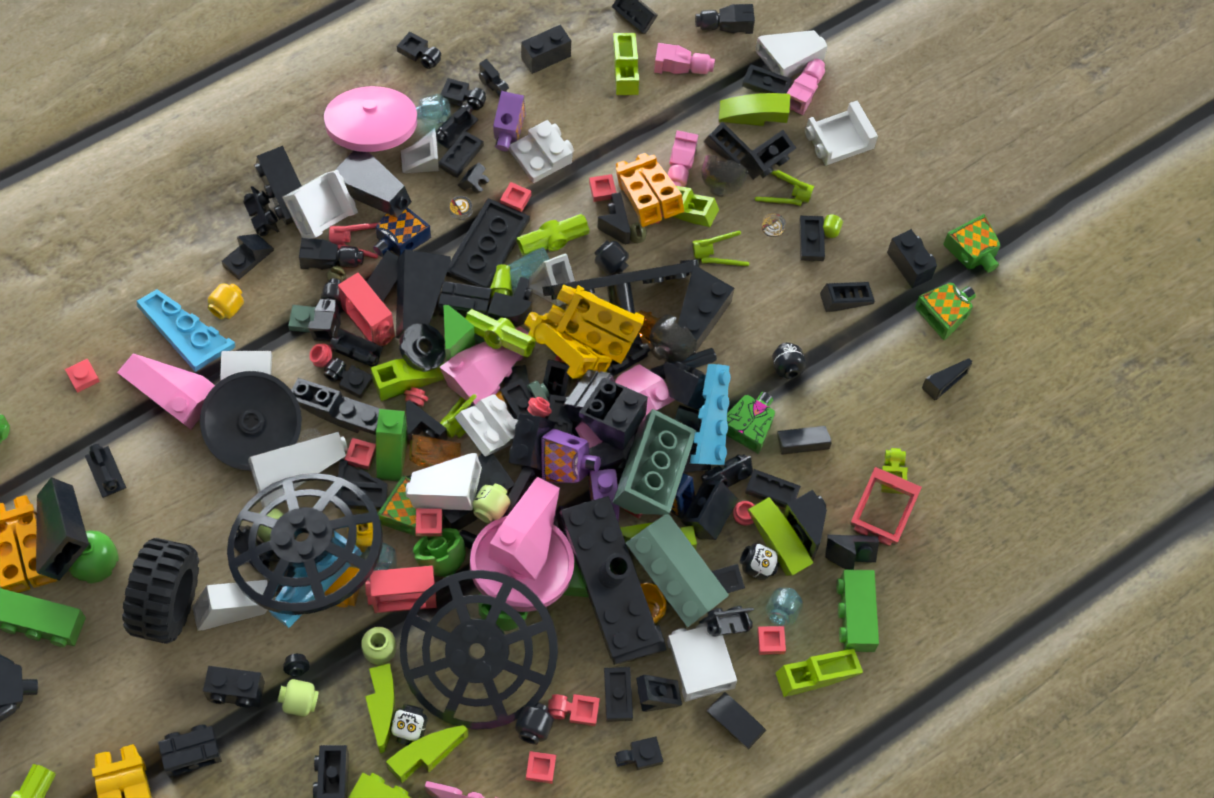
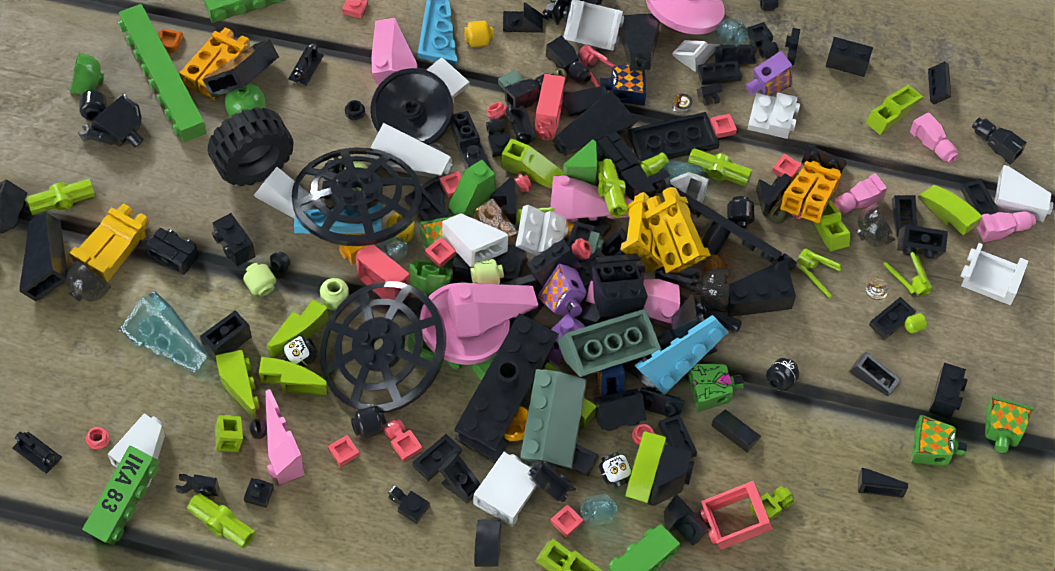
camera: 50 degrees right, 5 degrees down
(196, 463) = (354, 105): none -> black plate
(414, 355) = (545, 150): black tile -> none
(626, 152) = (825, 159): none -> black hinge

